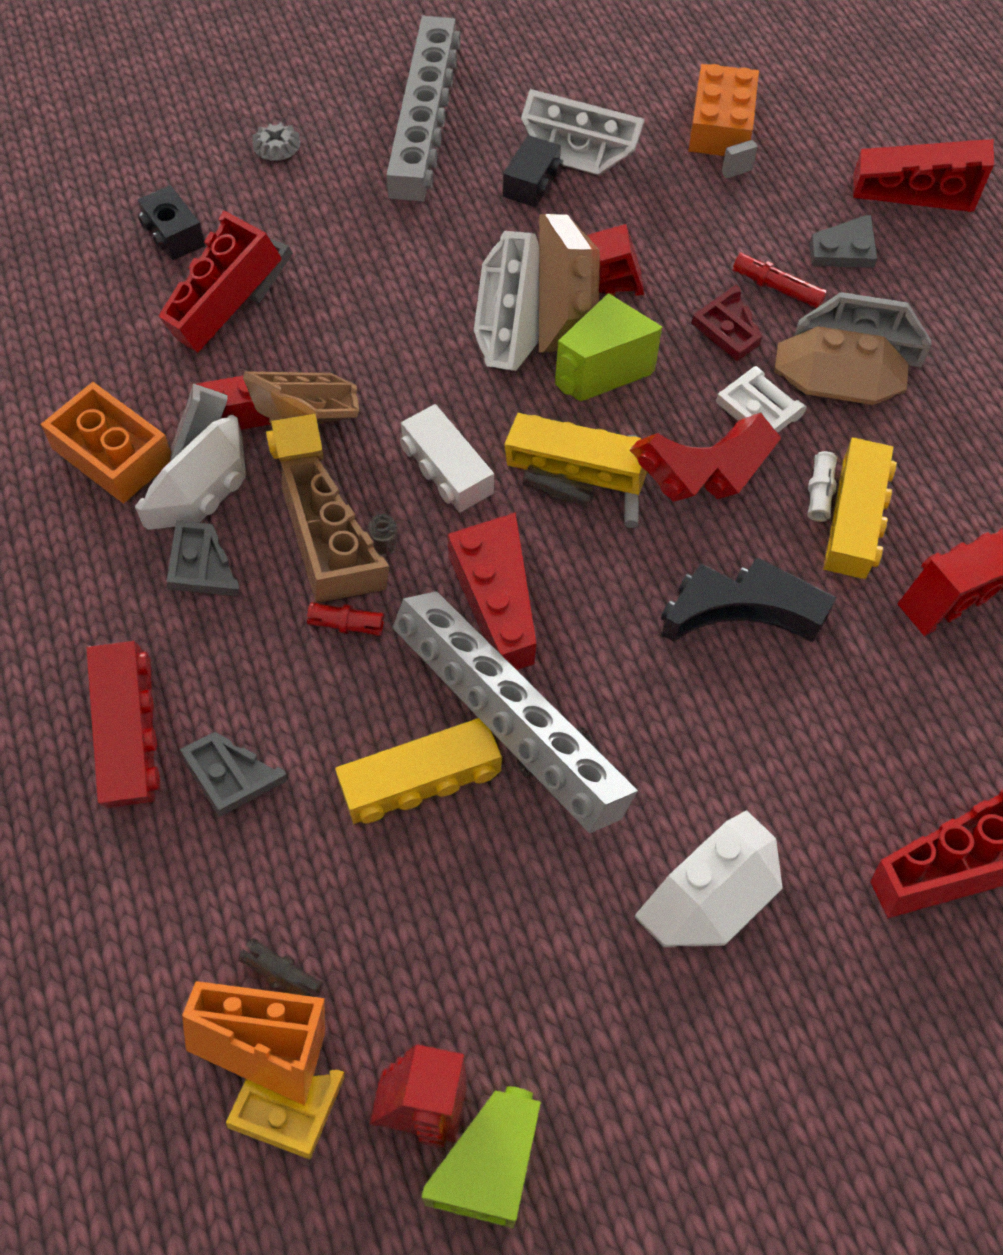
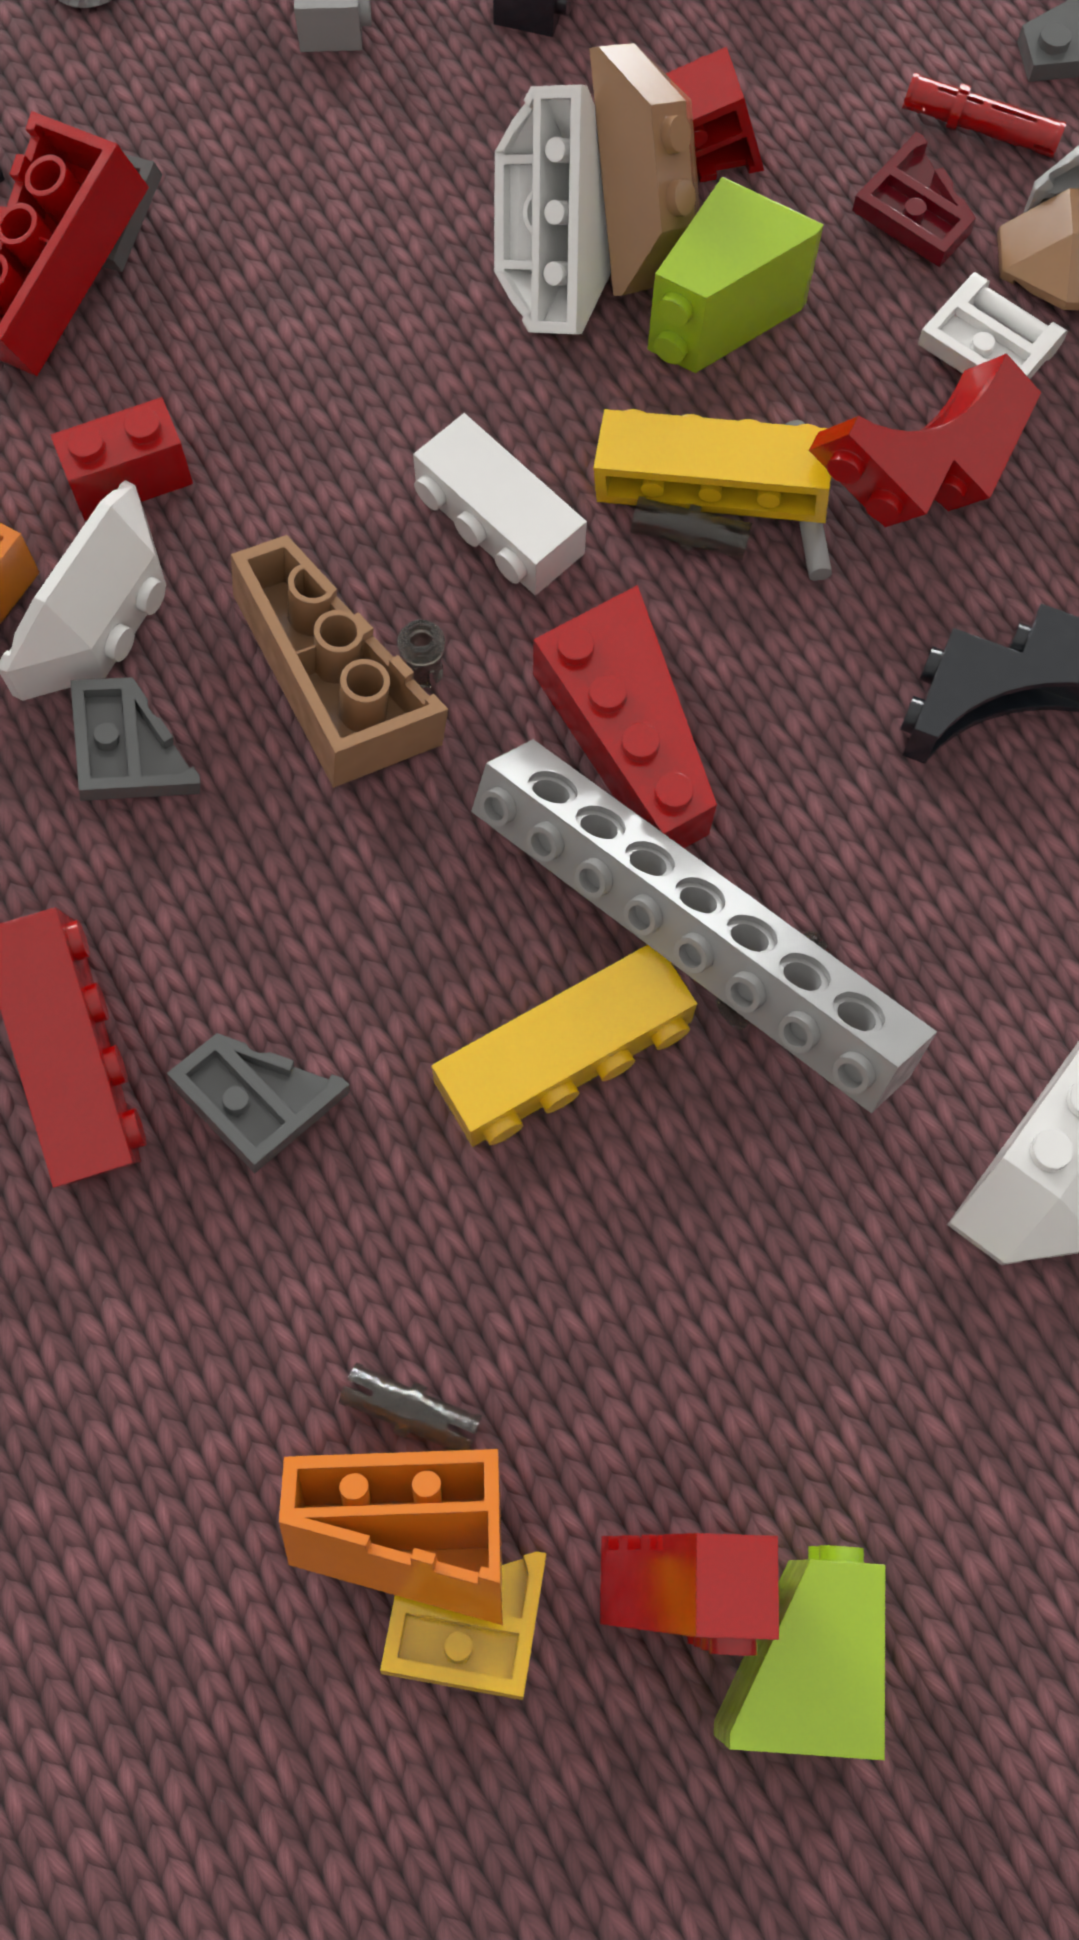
camera: 10 degrees left, 10 degrees up
(200, 411) = (72, 487): light grey panel -> none
(295, 438) = (249, 511): yellow brick -> none
(300, 394) = (239, 433): medium nougat wedge -> none
(345, 618) = (388, 806): red pin -> none

